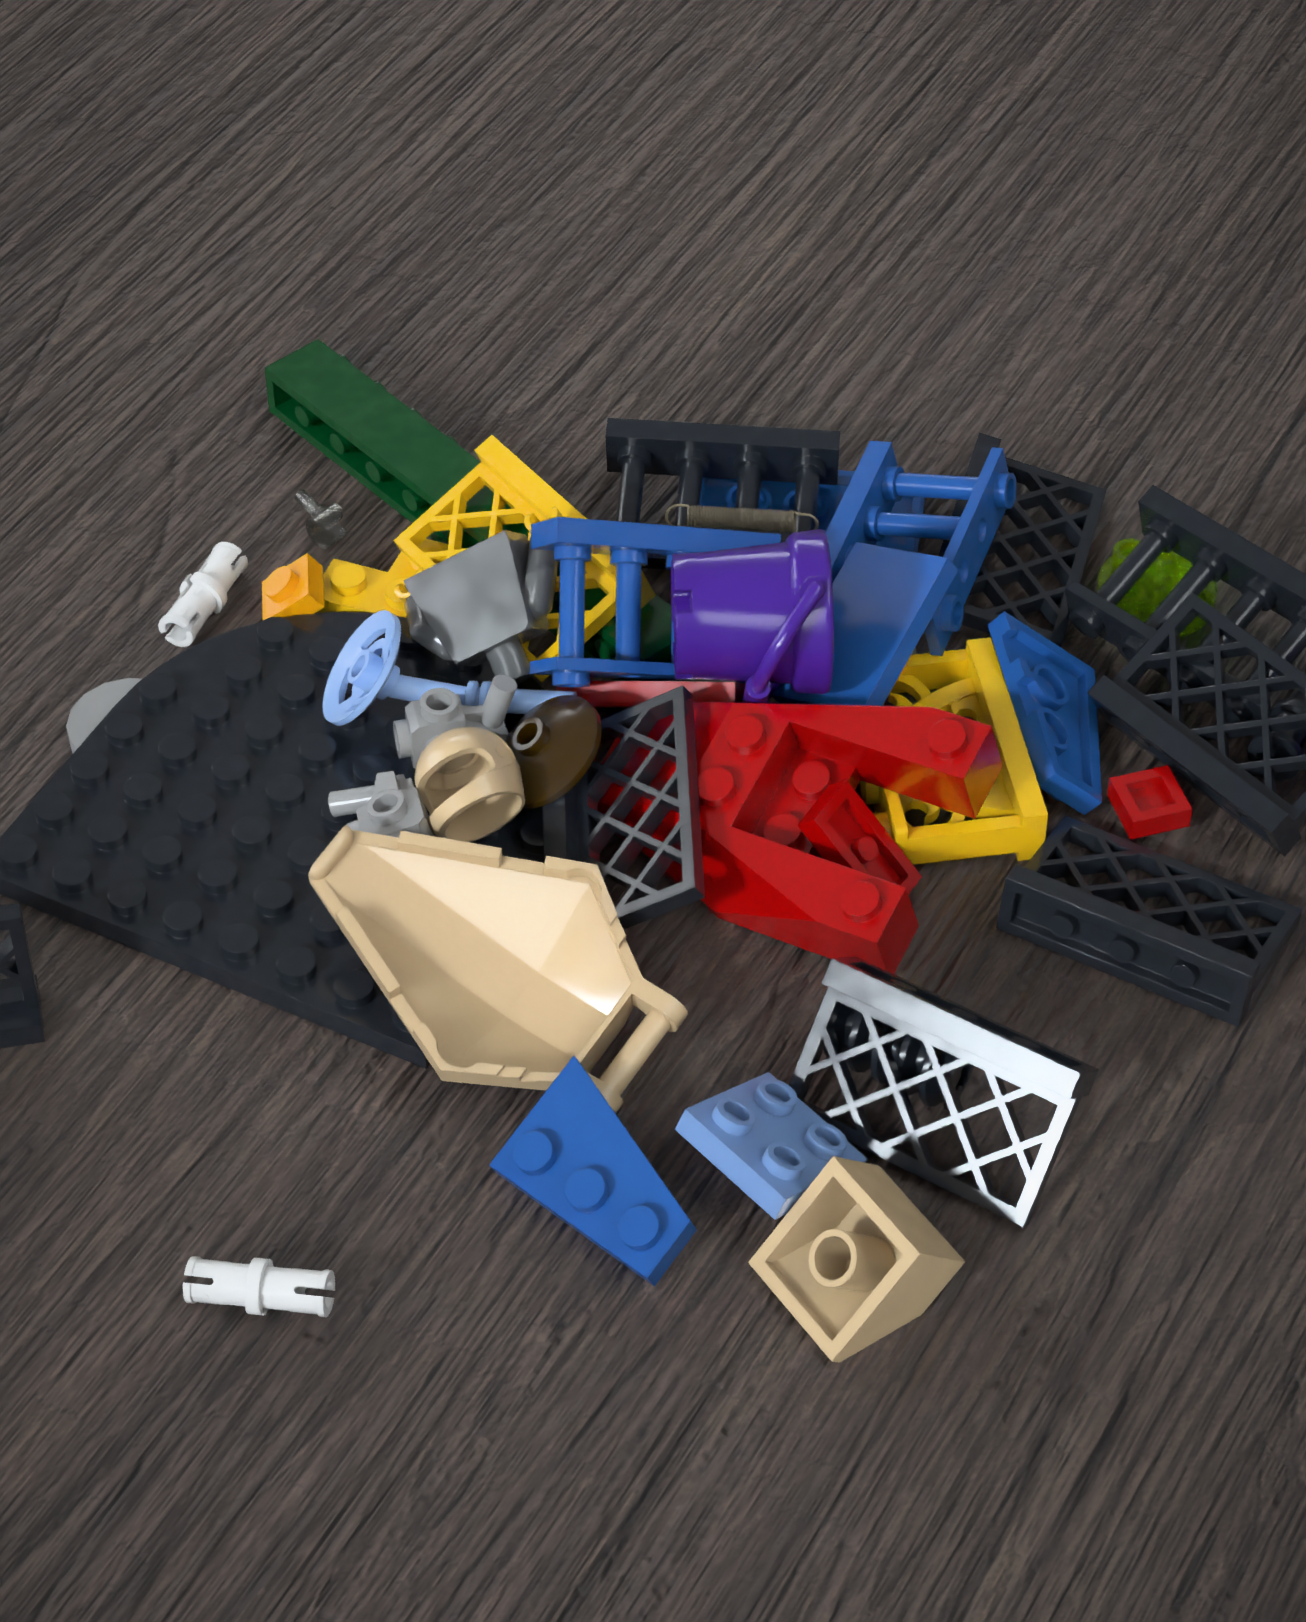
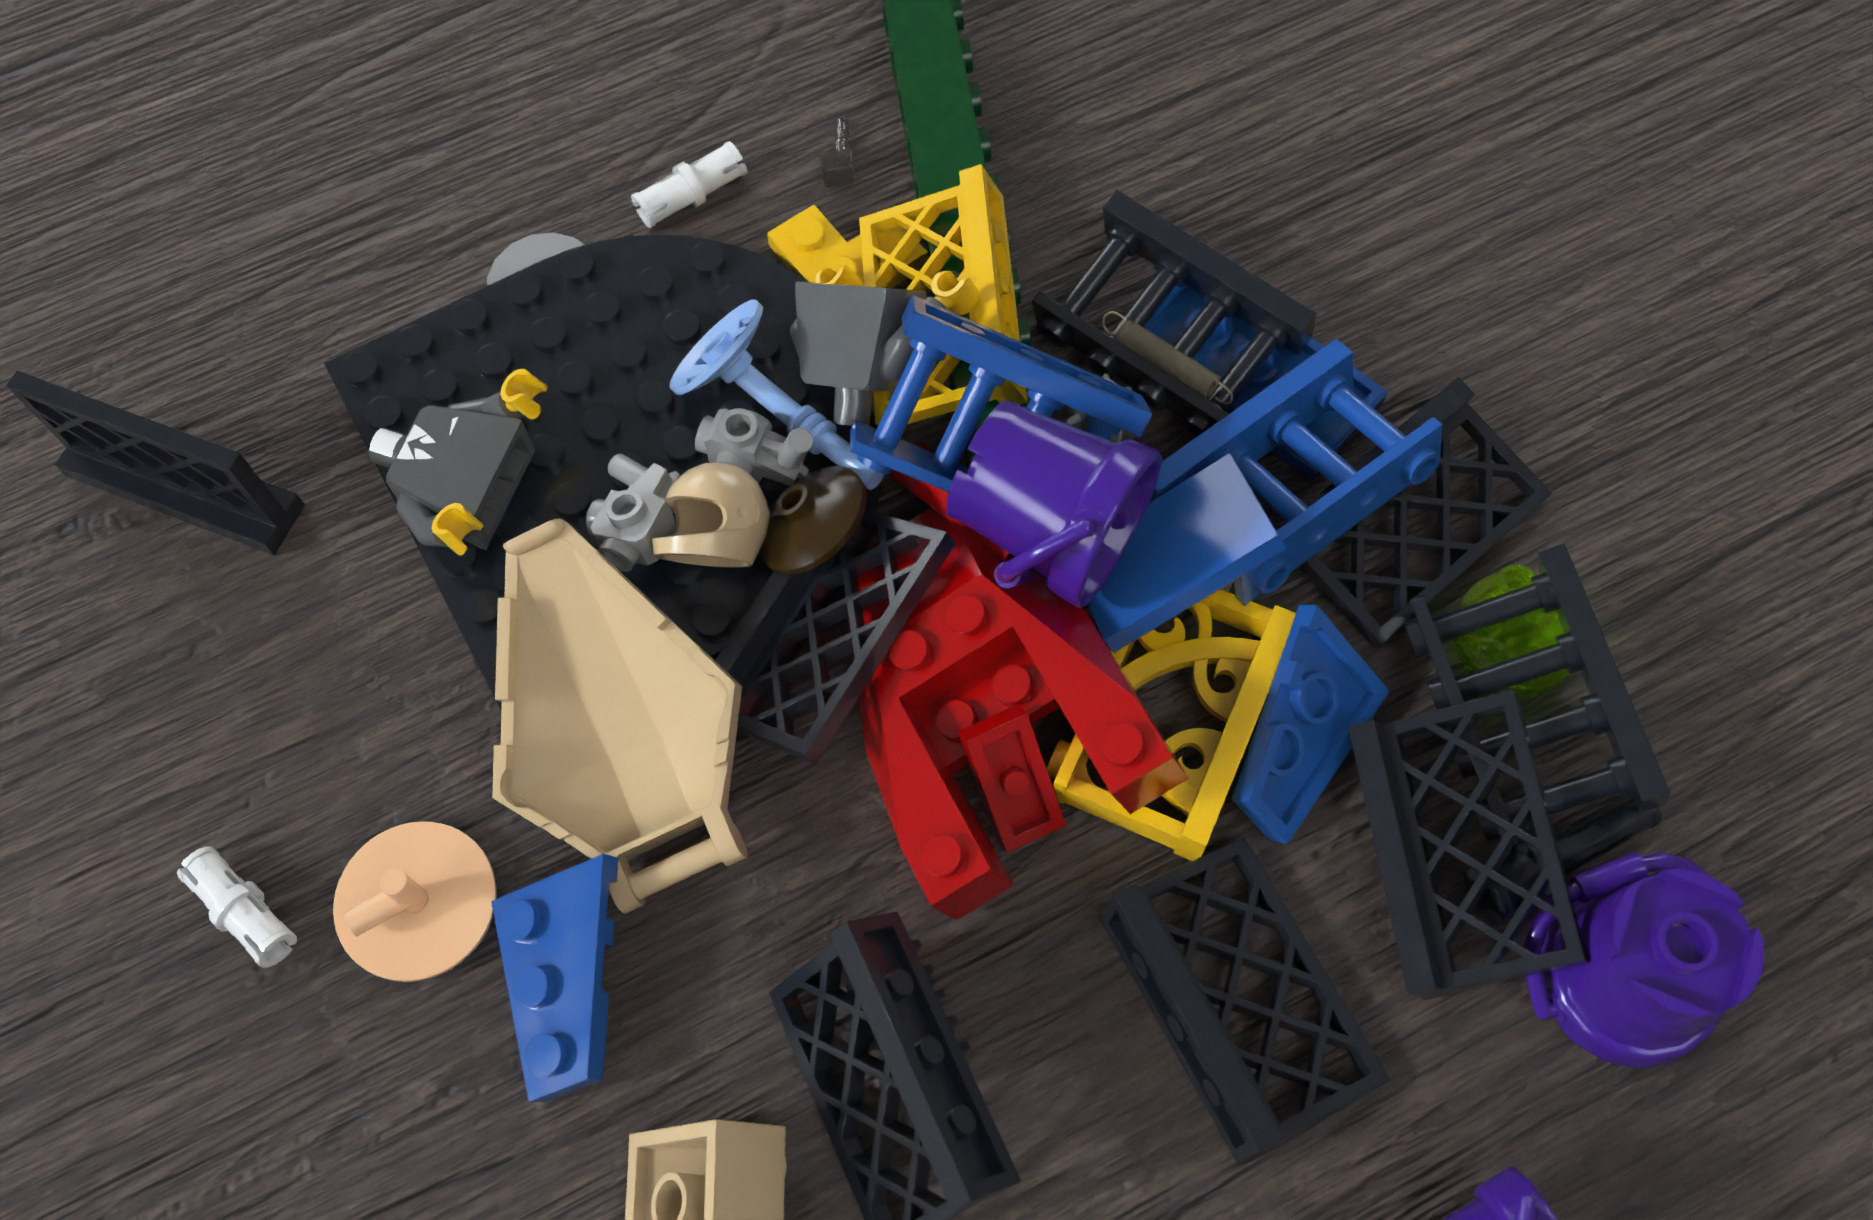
camera: 35 degrees right, 20 degrees up
(200, 854) = (461, 464): none -> dark grey torso
(294, 589) = (754, 222): light orange plate -> none
(417, 1204) = (414, 901): none -> light nougat shield
(765, 1141) = (712, 1043): medium blue plate -> none
(1149, 802) = (1330, 872): red plate -> none

